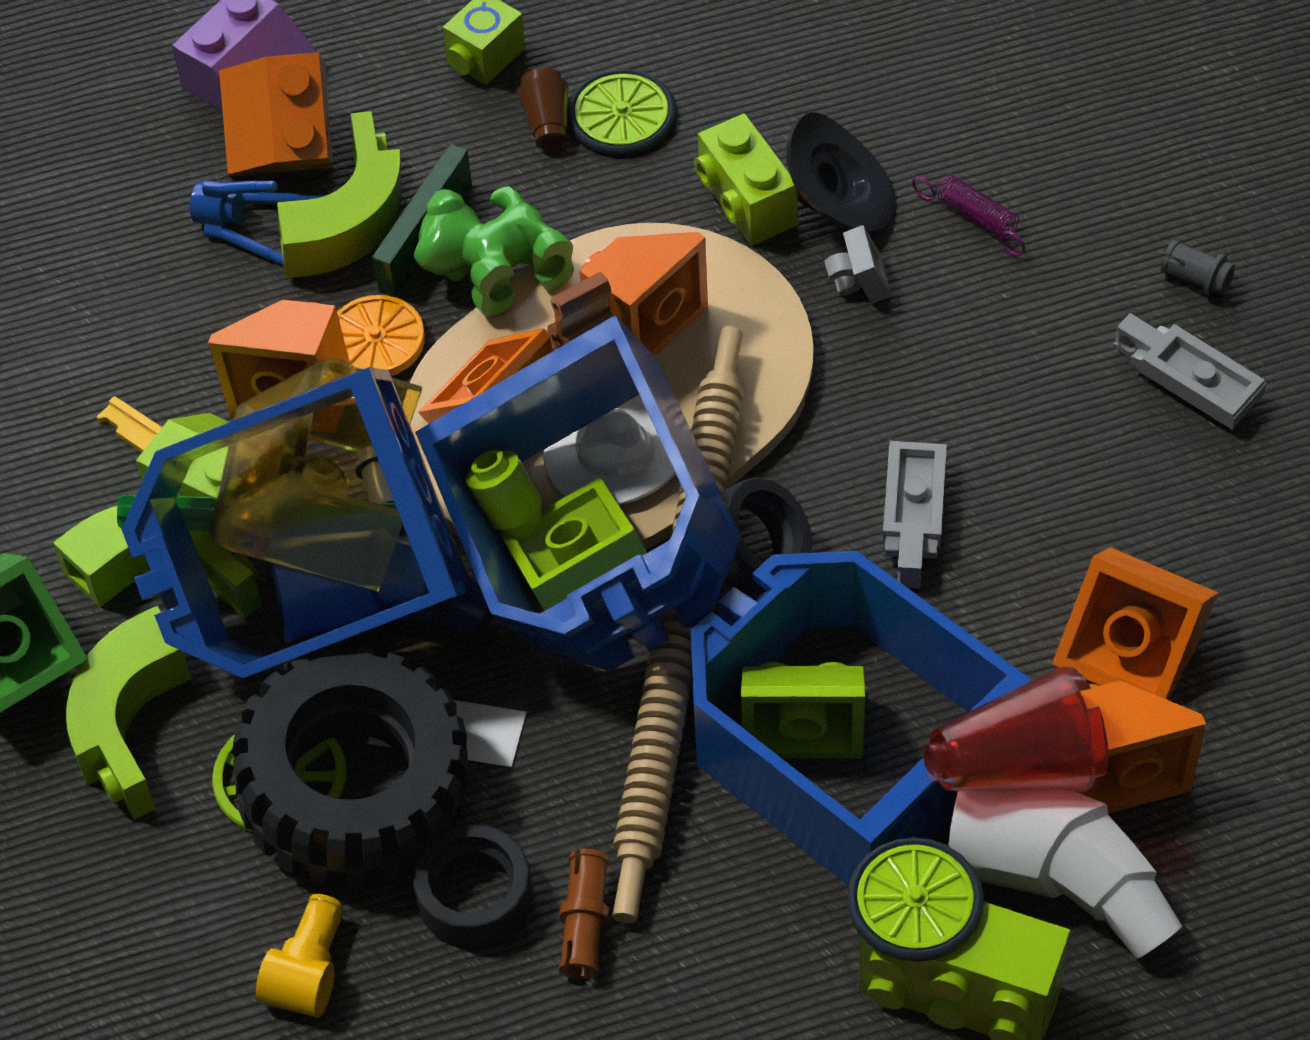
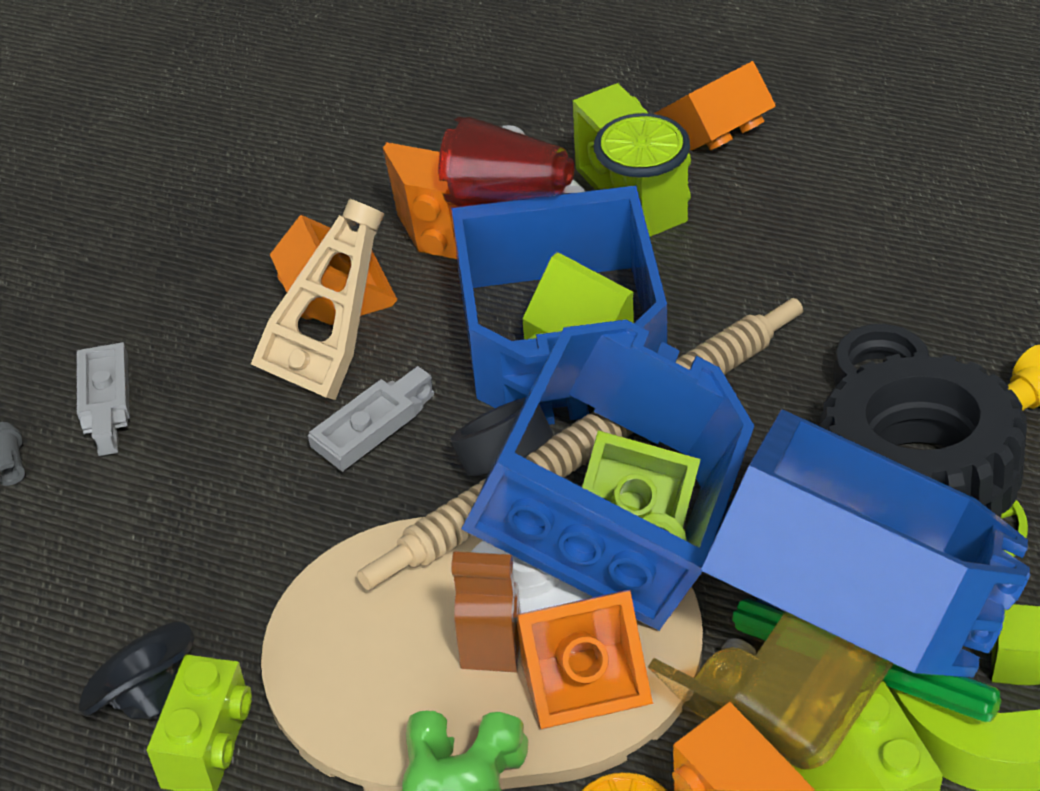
camera: 140 degrees left, 10 degrees down
(584, 914) = (820, 319): dark orange pin -> none
(654, 283) = (400, 625): orange slope -> none
(859, 267) = (207, 597): light grey tile -> none
(972, 205) = (67, 602): magenta piece -> none
(1058, 535) = (299, 358): none -> tan plate

